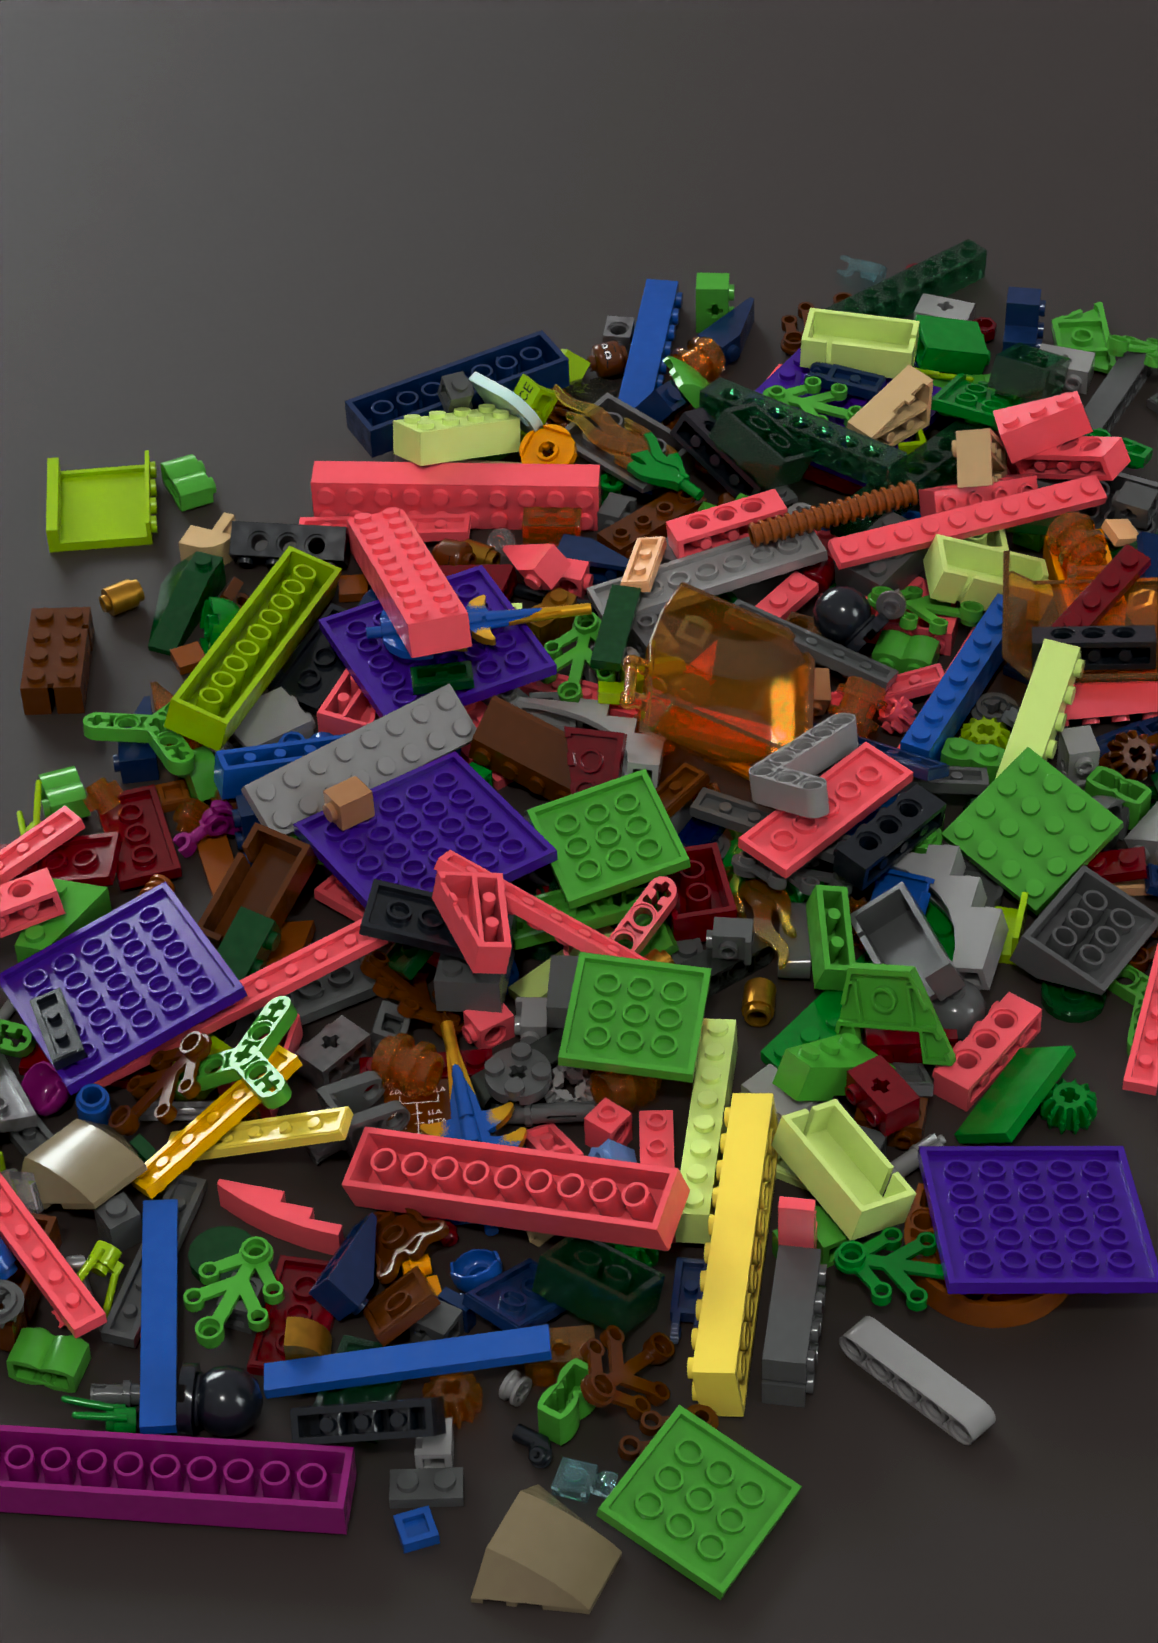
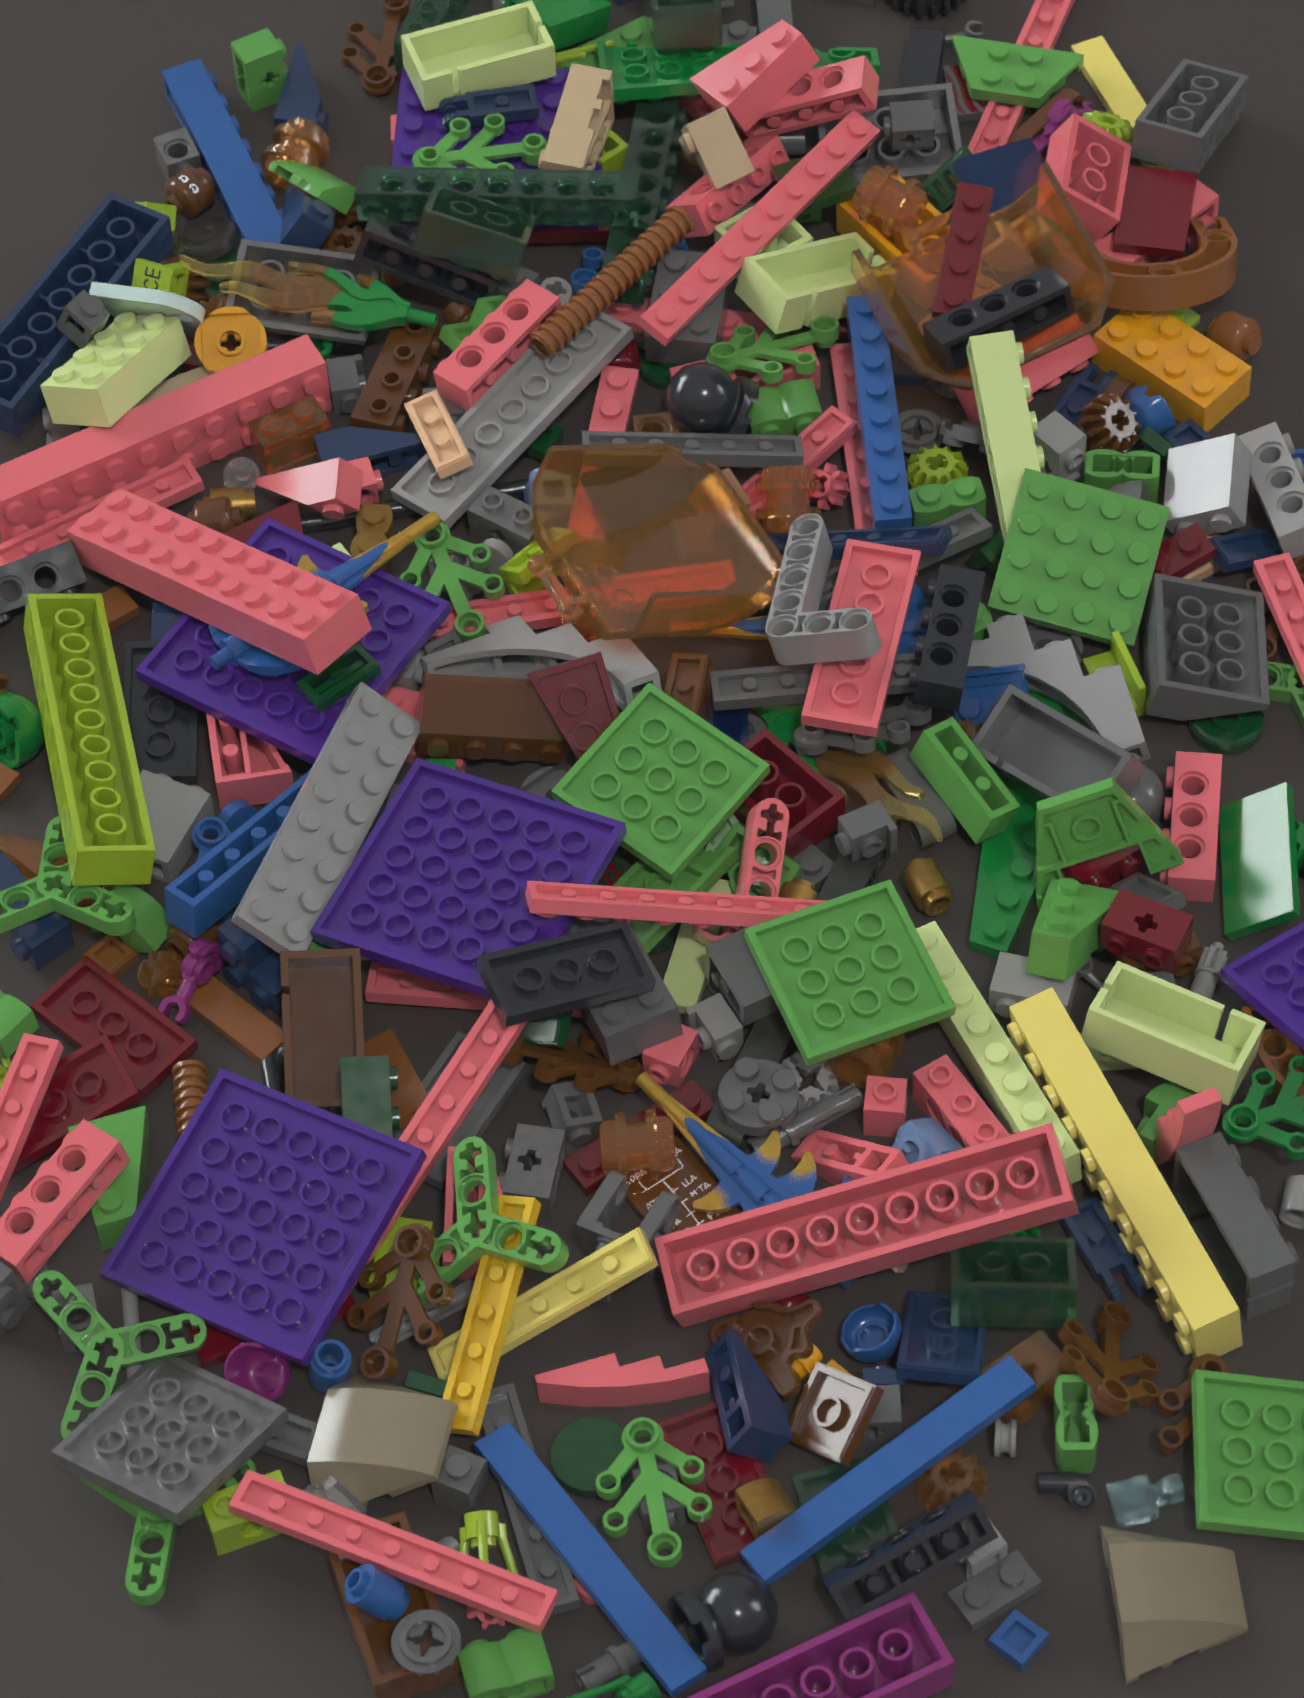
camera: 30 degrees left, 10 degrees up
(58, 1029) = (237, 1299): black tile -> none
(102, 796) = (51, 999): clear orange gear -> none
(348, 803) = (363, 878): medium nougat brick -> none
(476, 916) = (628, 947): coral wedge -> none
(609, 692) = (516, 603): lime tile -> none
(615, 628) = (470, 525): dark green tile -> none
(891, 604) = (749, 361): flat silver plate -> none
(1119, 531) = (914, 163): light nougat tile -> none

